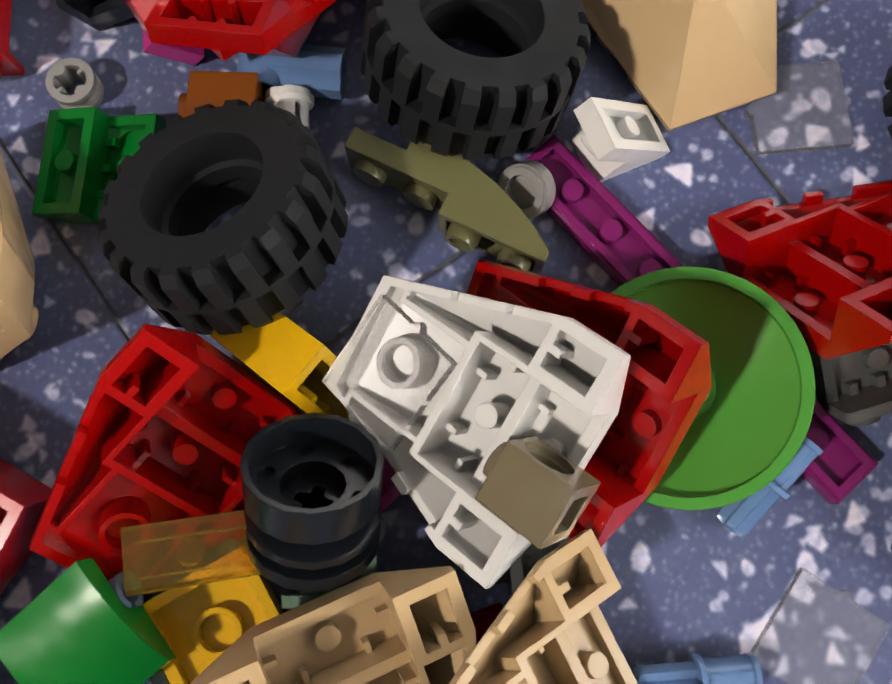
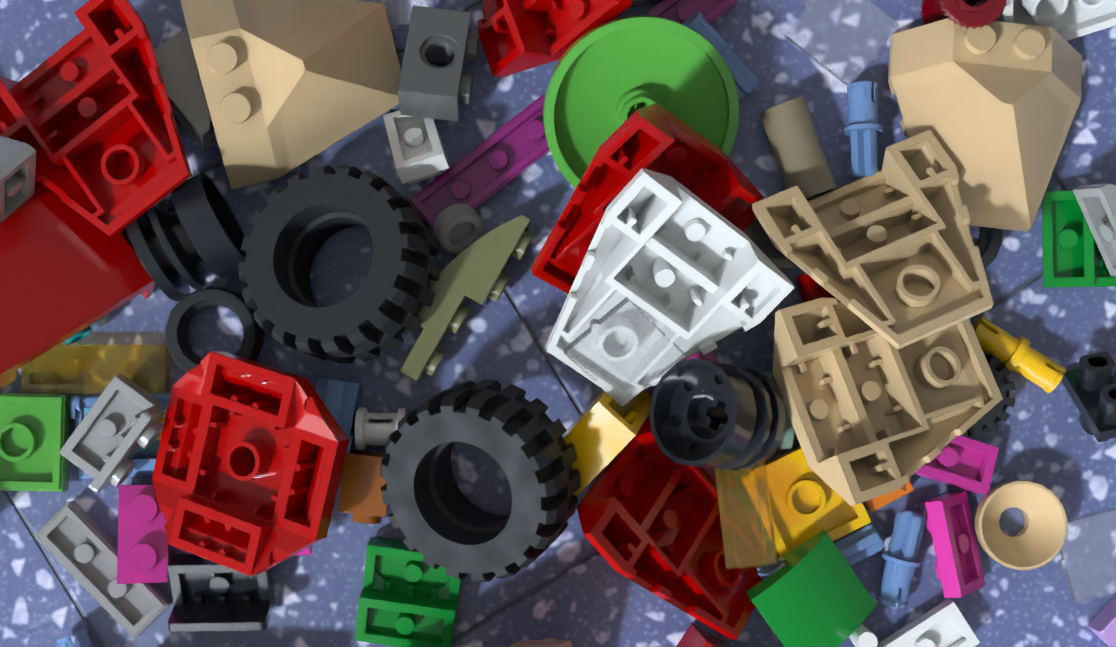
camera: 85 degrees left, 10 degrees up
(64, 75) = (320, 628): light grey bush -> none
(536, 490) = (726, 244): dark tan brick -> none
(666, 592) = (798, 148): none -> dark tan pin
(717, 146) = (433, 38): none -> dark grey brick

